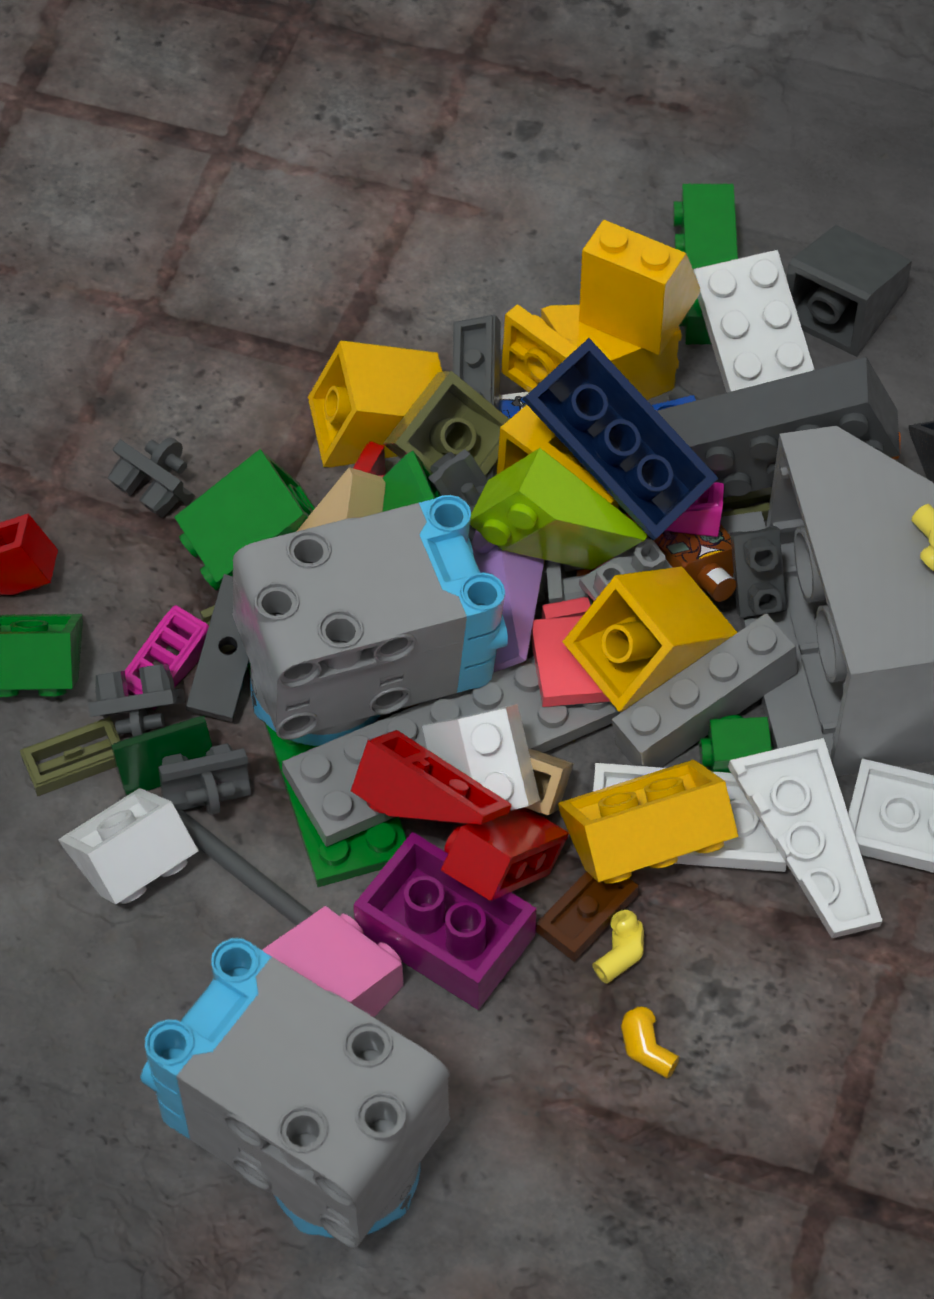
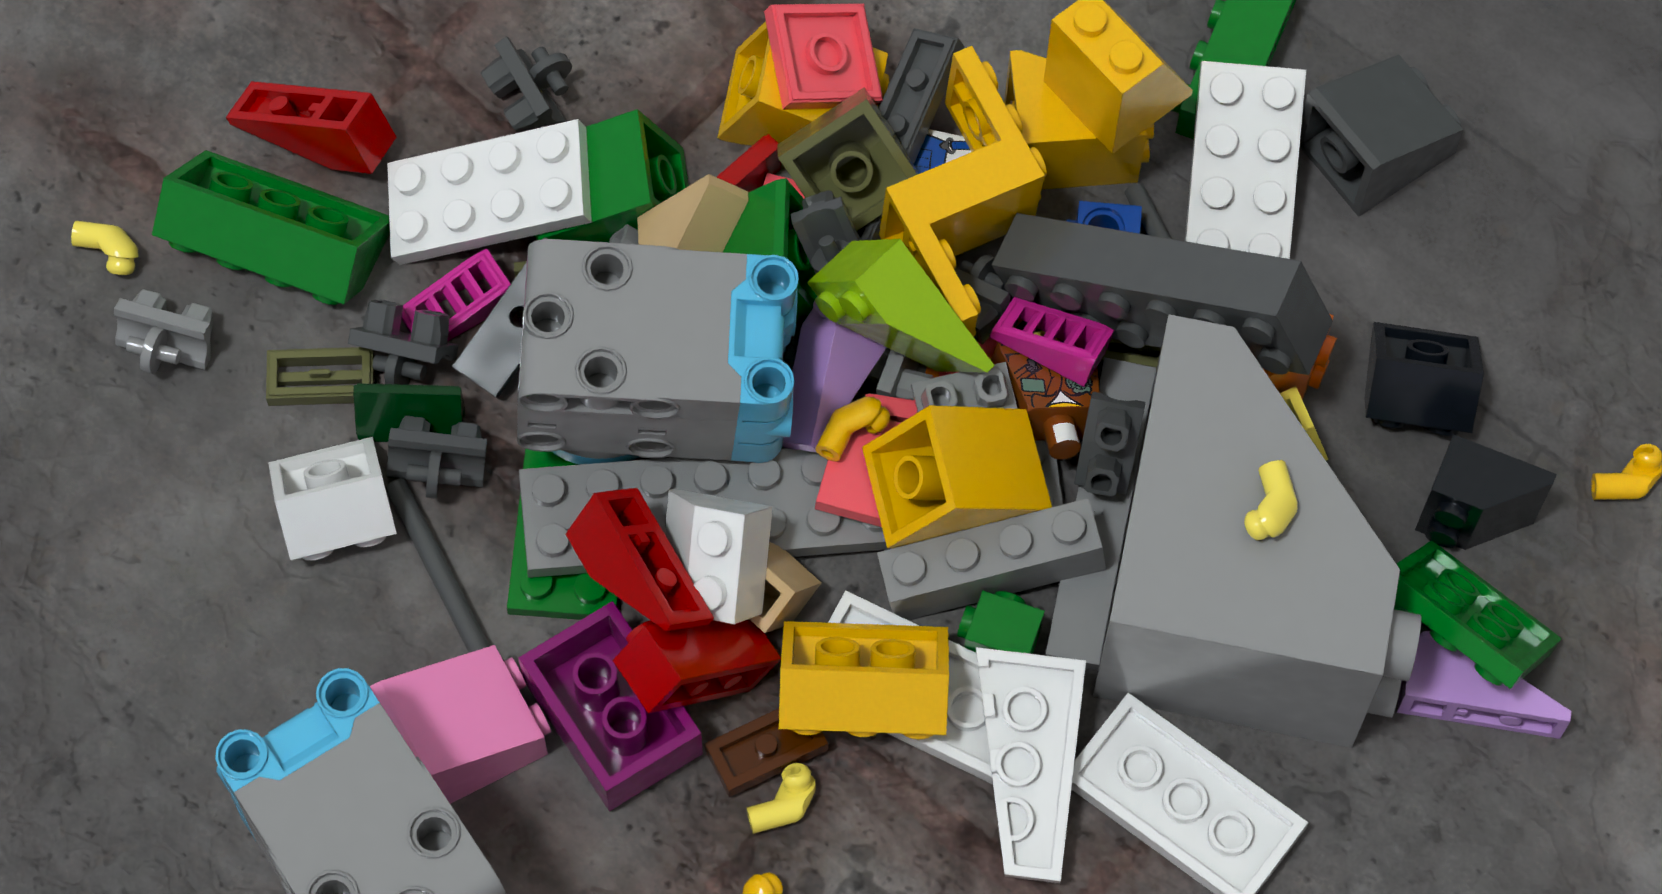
camera: 20 degrees right, 10 degrees up
(156, 561) = (489, 192): none -> white plate
(387, 362) = (821, 54): none -> coral tile
(540, 625) = (845, 420): none -> yellow arm
(620, 439) = (998, 254): dark blue slope -> none

